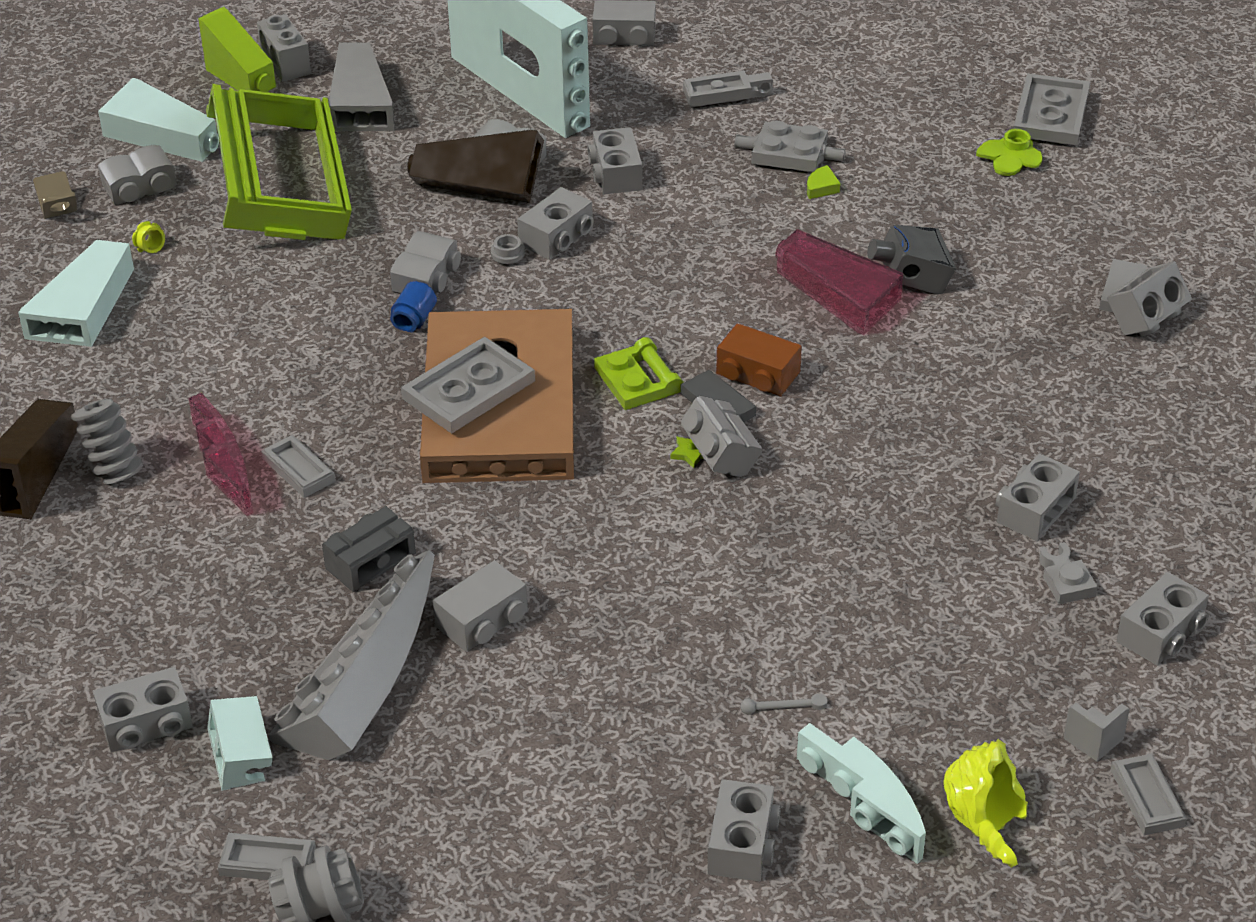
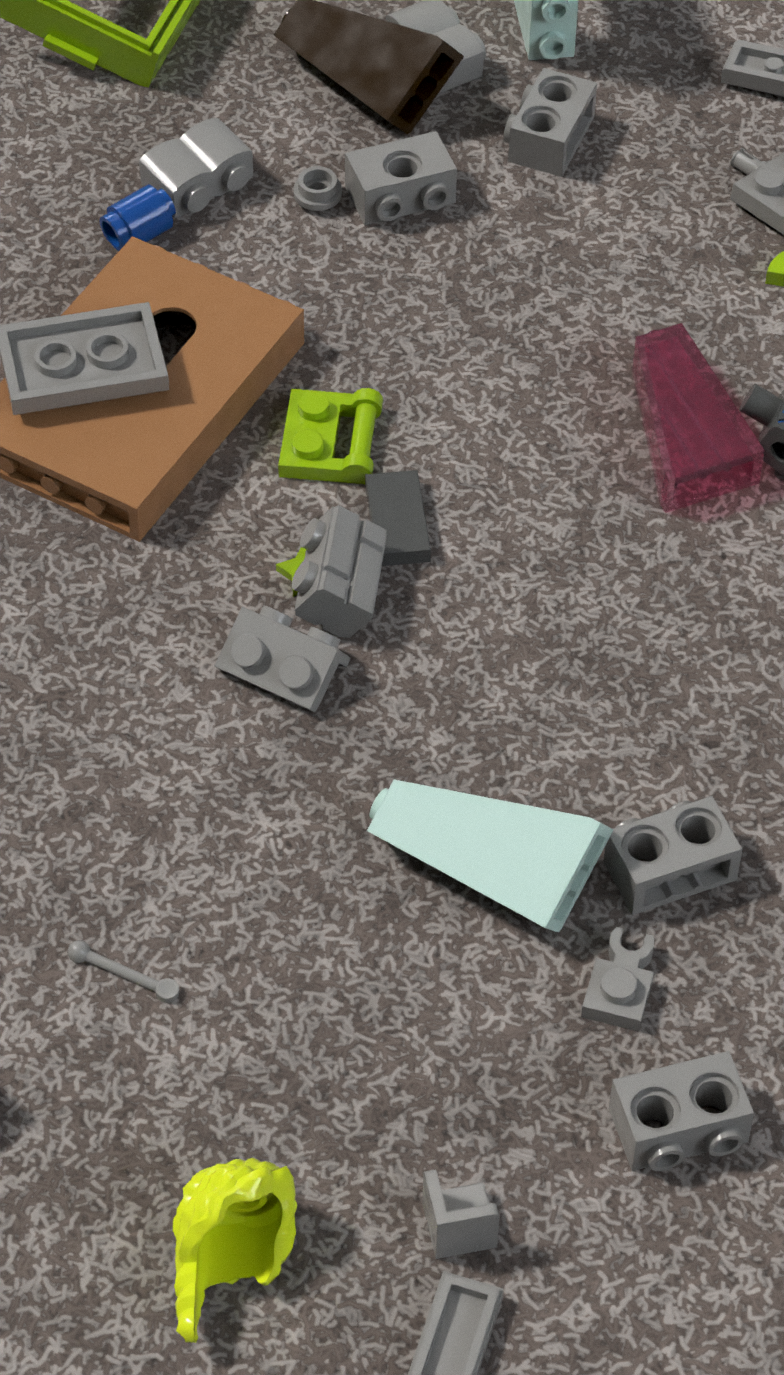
camera: 30 degrees right, 10 degrees up
(724, 497) = (281, 659): none -> light grey bracket
(758, 359) = (485, 486): dark orange brick -> none
(875, 792) = (108, 1146): light aqua slope -> none
(944, 533) = (504, 849): none -> light aqua slope

